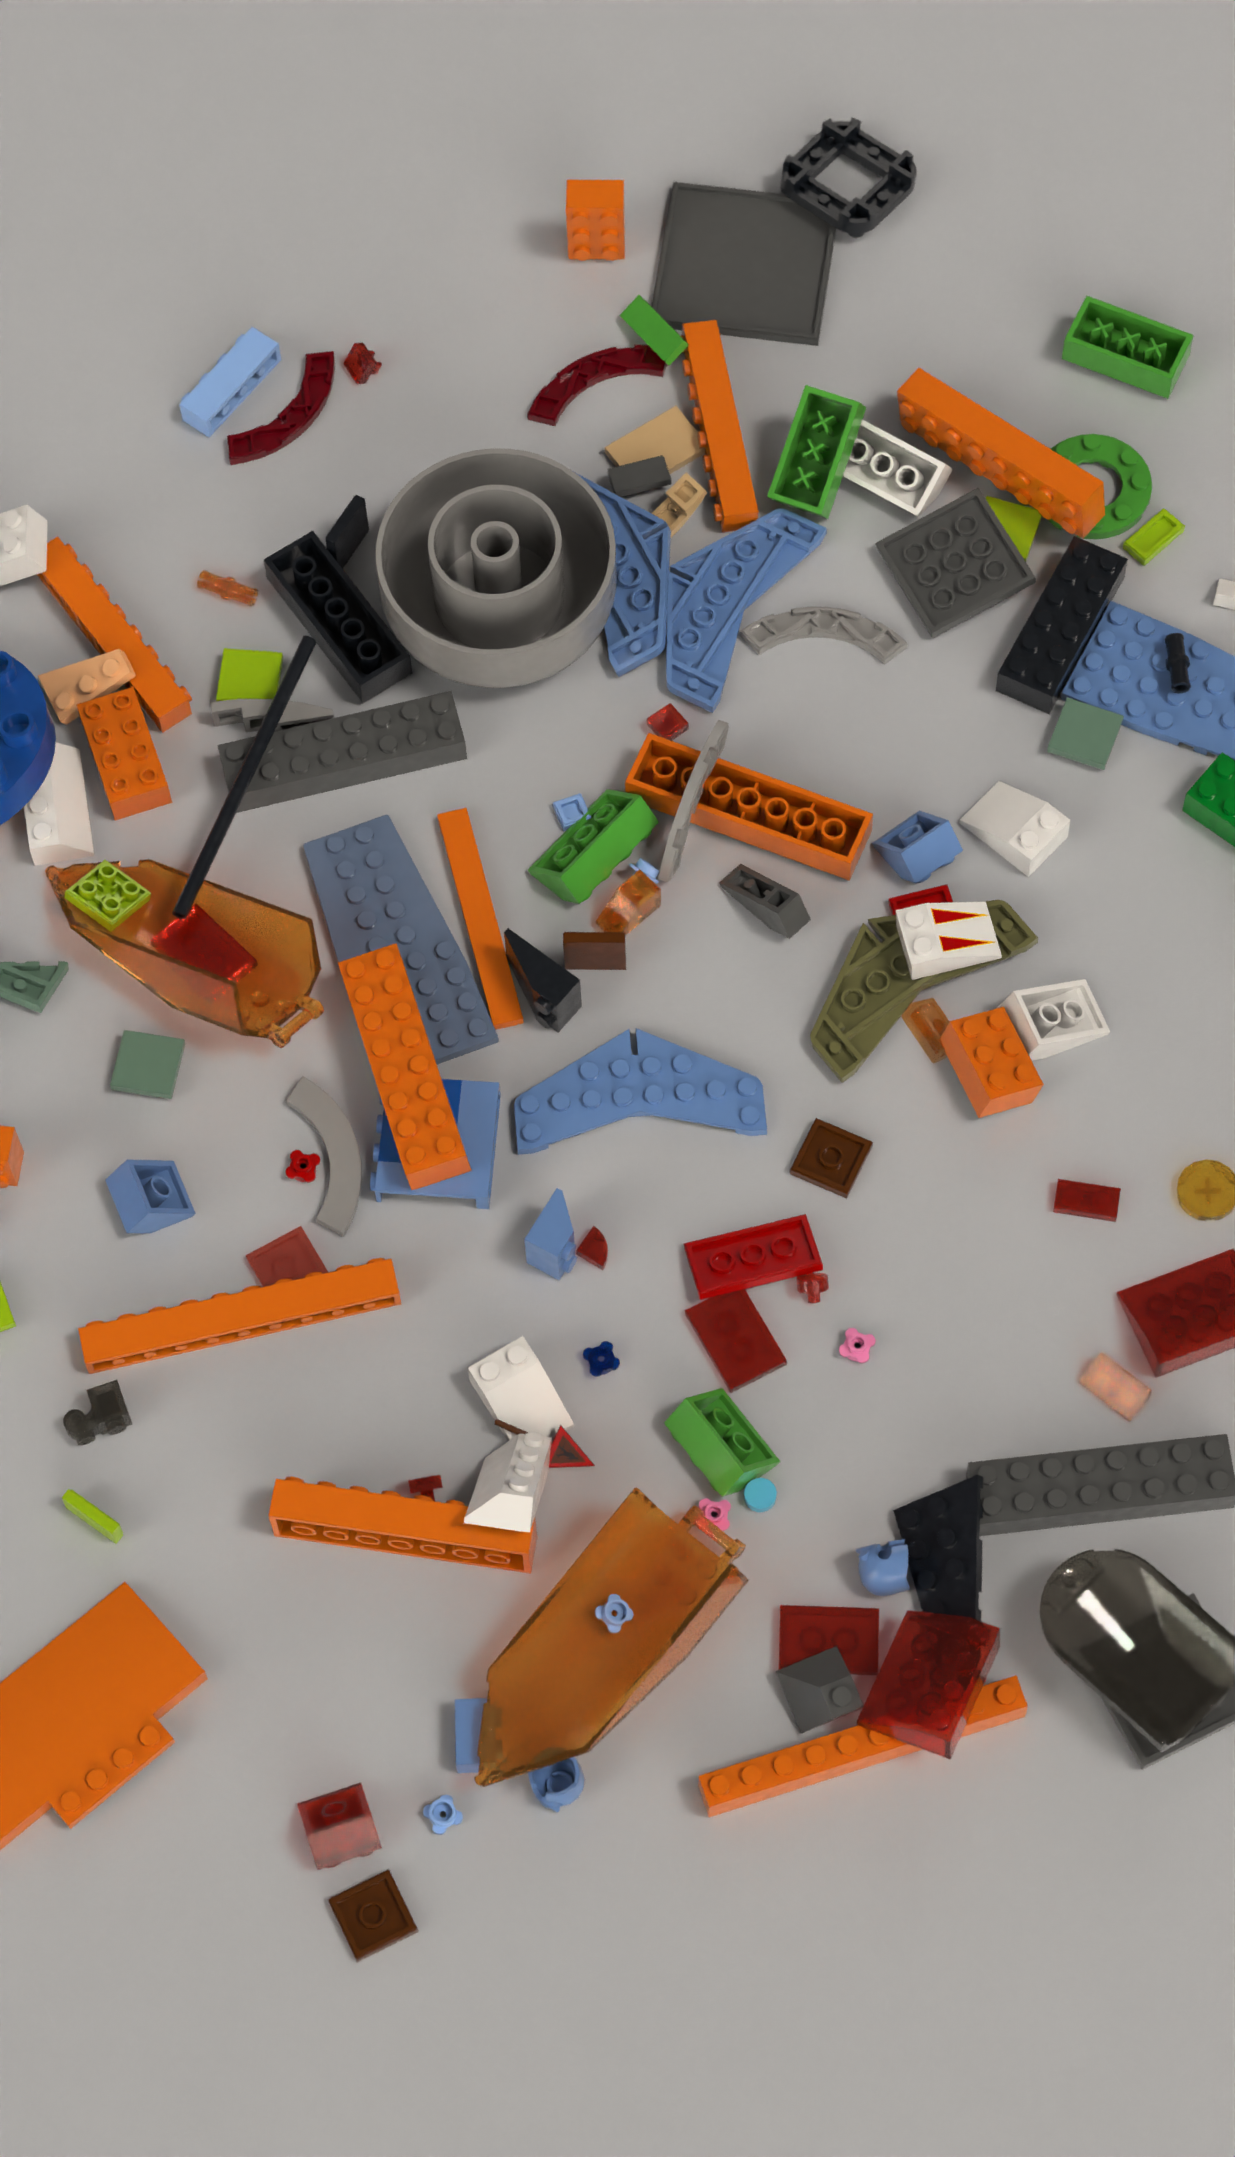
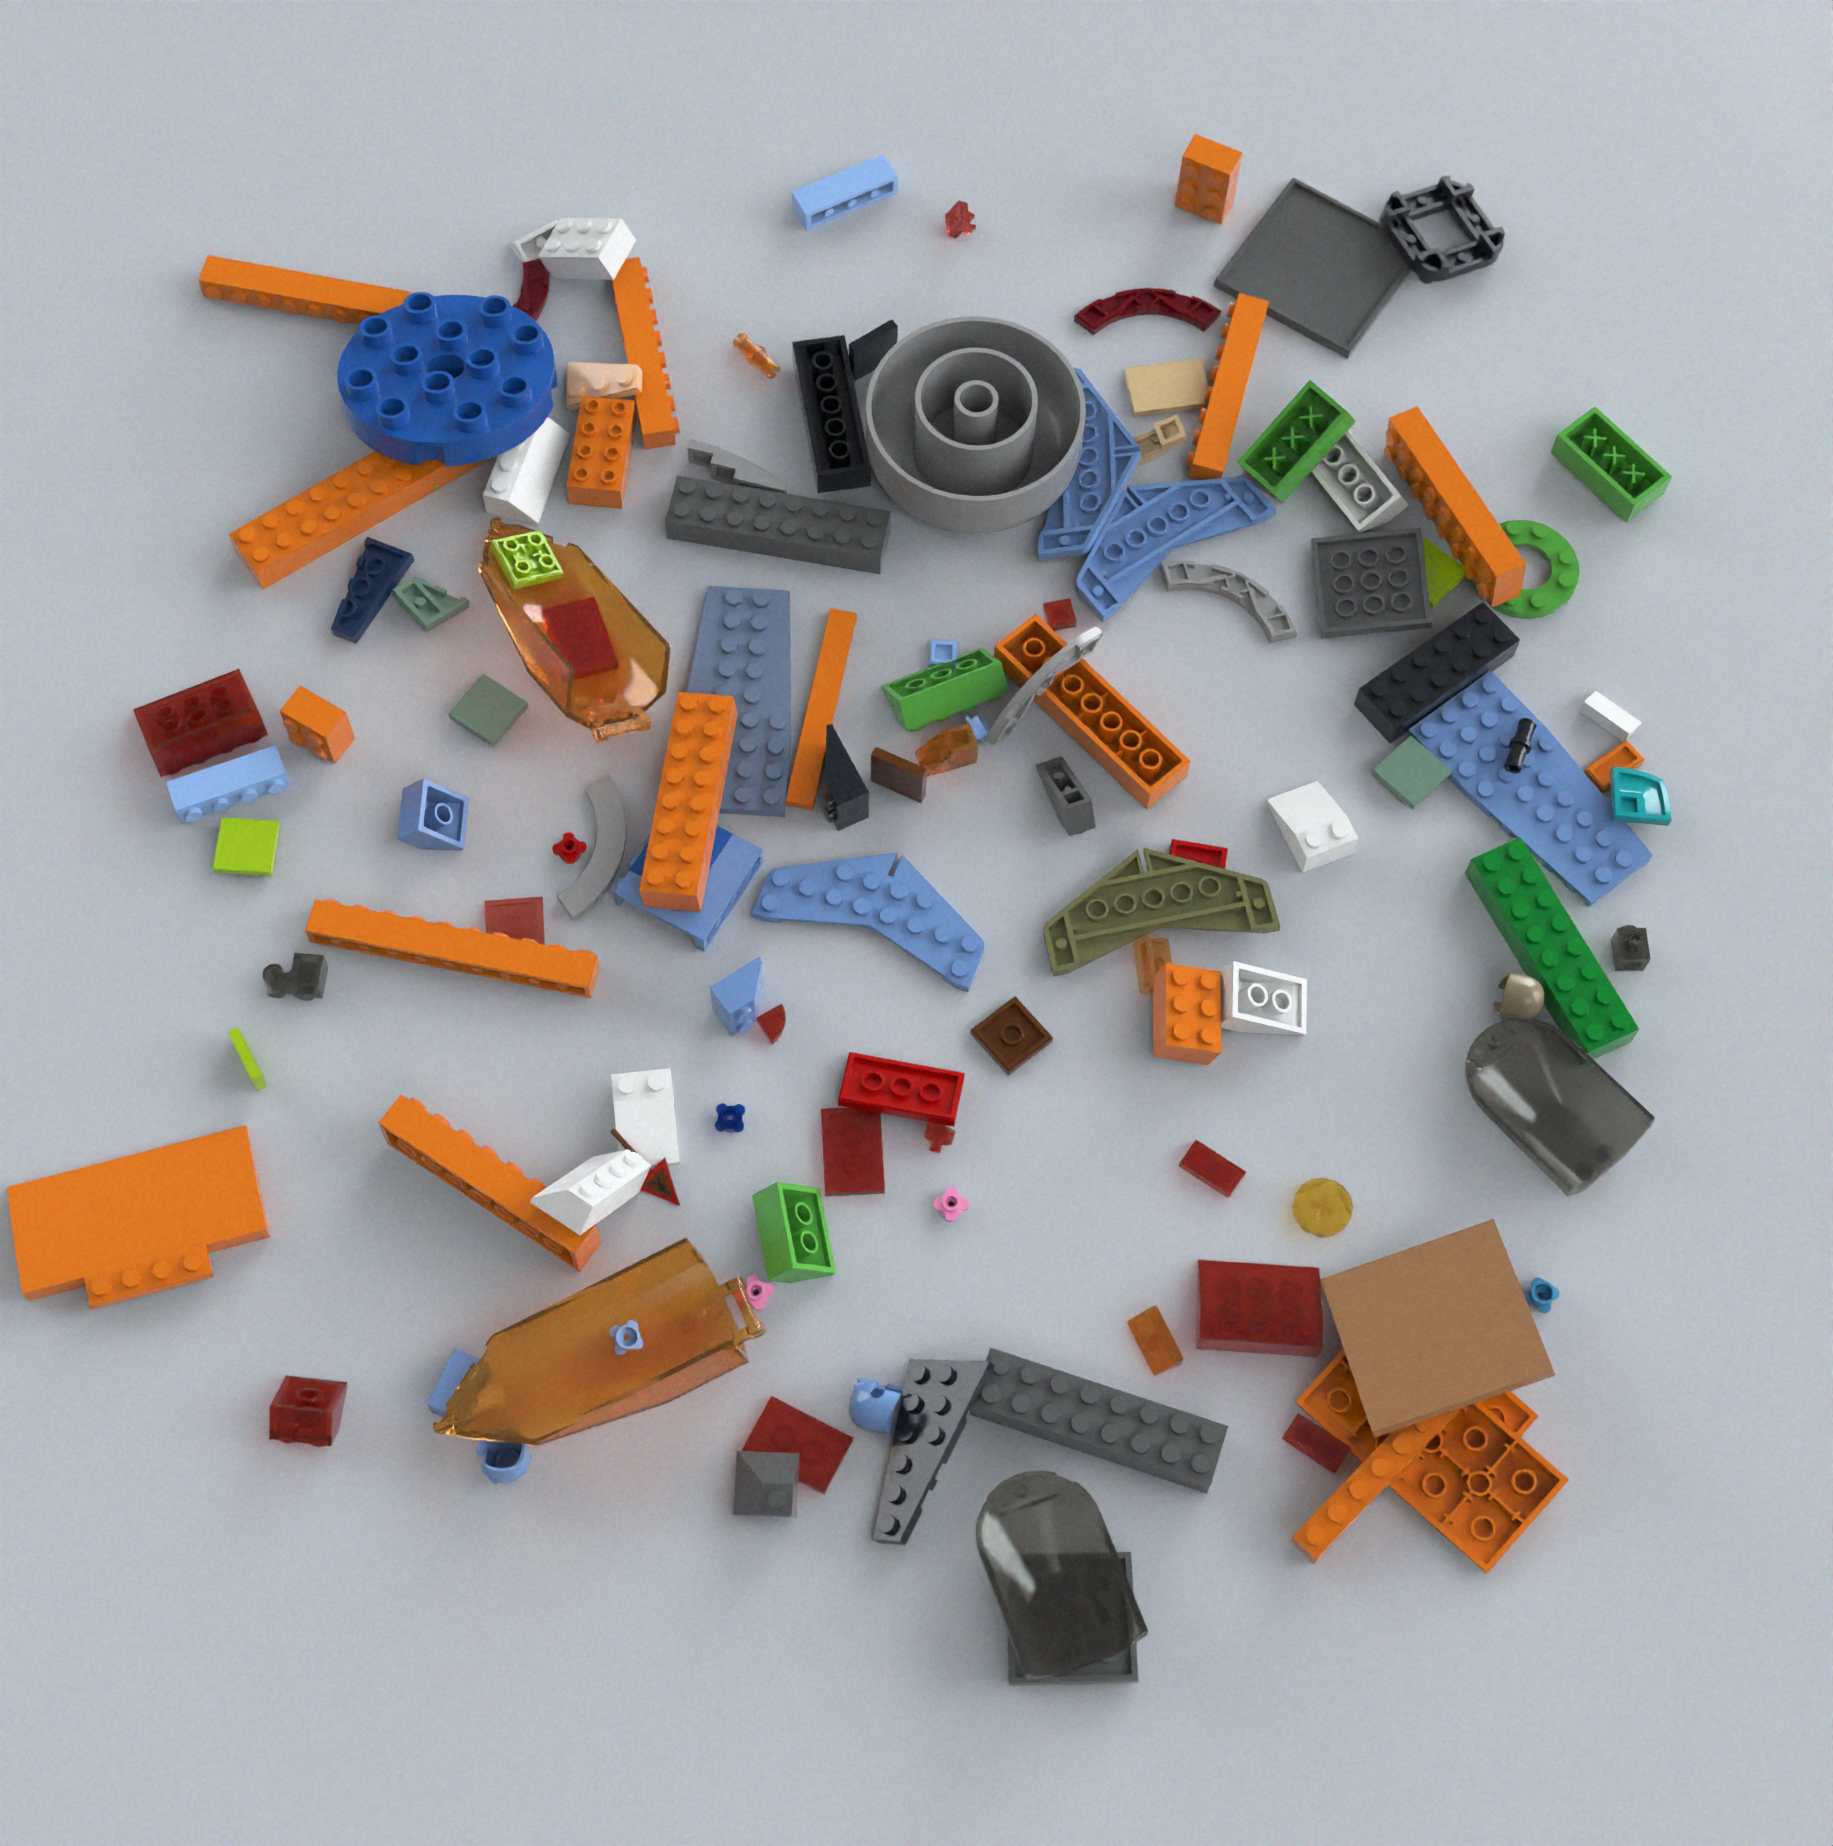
camera: 20 degrees right, 0 degrees up
(243, 778) = (682, 510): black piece -> none
(249, 674) = (736, 431): lime tile -> none
(293, 419) = (883, 242): dark red tile -> none
(373, 1915) = (297, 1500): reddish brown tile -> none
(425, 1485) = (528, 1159): clear red tile -> none
(446, 1805) = (392, 1434): light blue plate -> none
(639, 476) = (1139, 403): dark grey tile -> none
(654, 330) = (1213, 289): bright green tile -> none
(760, 1495) = (803, 1293): medium azure tile -> none
(840, 1754) = (776, 1550): orange brick -> none
(919, 846) = (1219, 806): medium blue slope -> none
(931, 1680) = (859, 1522): clear red slope -> none
(946, 937) = (1200, 890): white slope -> none
(1153, 537) = (1555, 632): lime tile -> none

